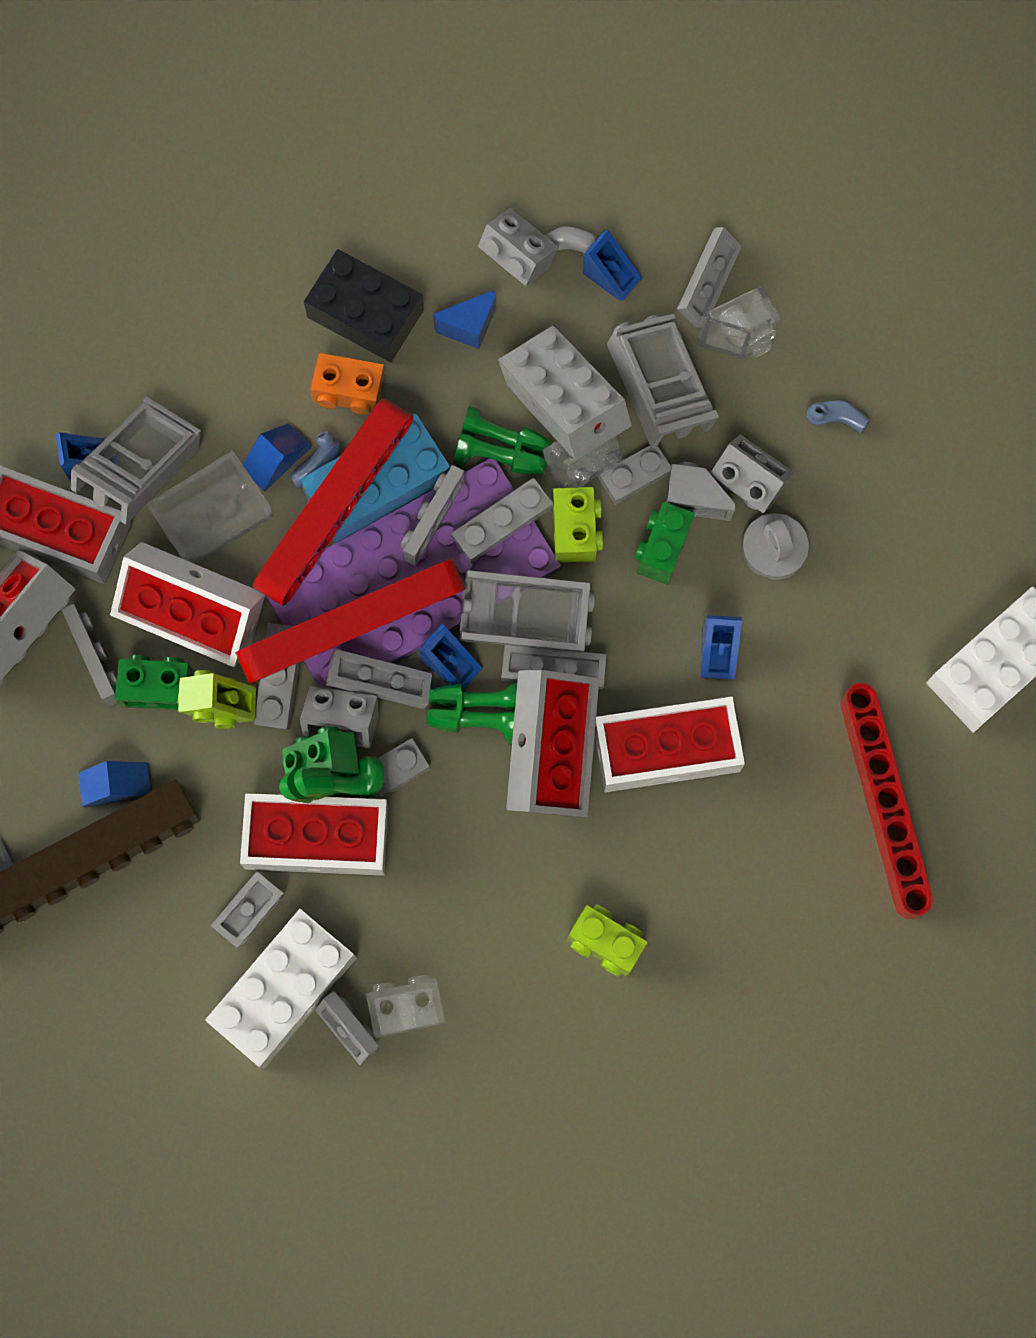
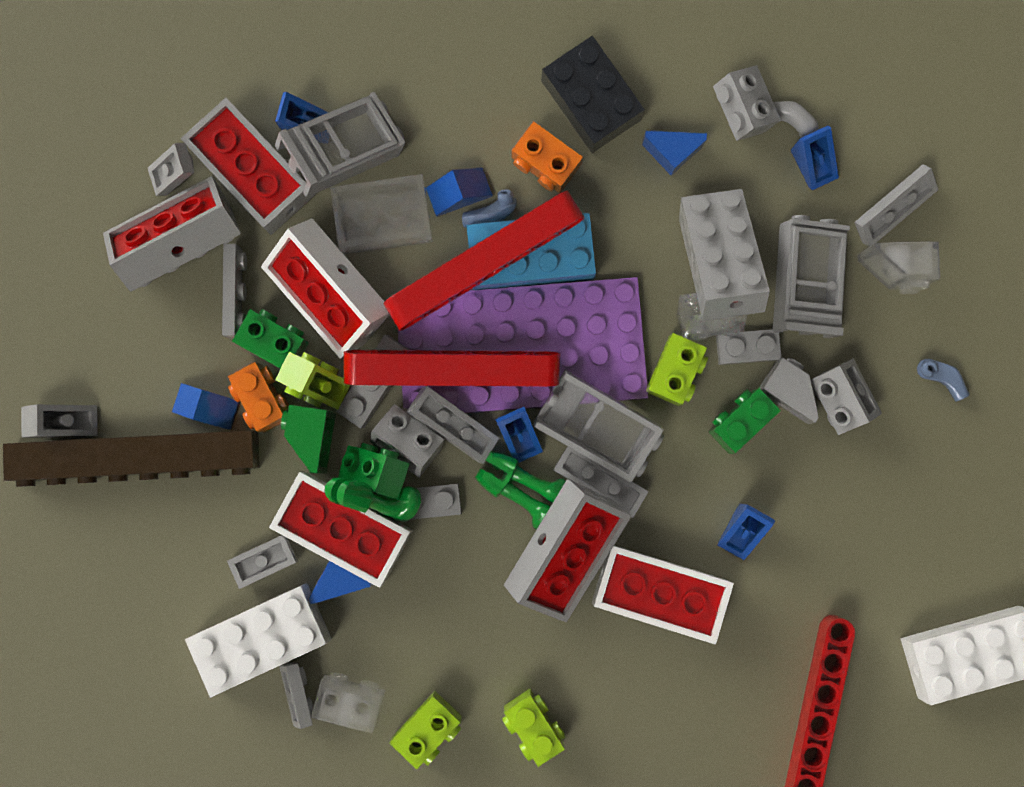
camera: 30 degrees right, 10 degrees up
(177, 752) = (258, 396): none -> orange brick
(237, 753) = (310, 435): none -> green slope
(337, 890) = (336, 582): none -> blue slope
(432, 515) = (561, 306): light grey plate -> none
(495, 995) = (427, 731): none -> lime brick
(502, 520) = (617, 338): light grey plate -> none
(523, 441) = (657, 293): green piece -> none
(775, 546) = (834, 465): light grey tile -> none

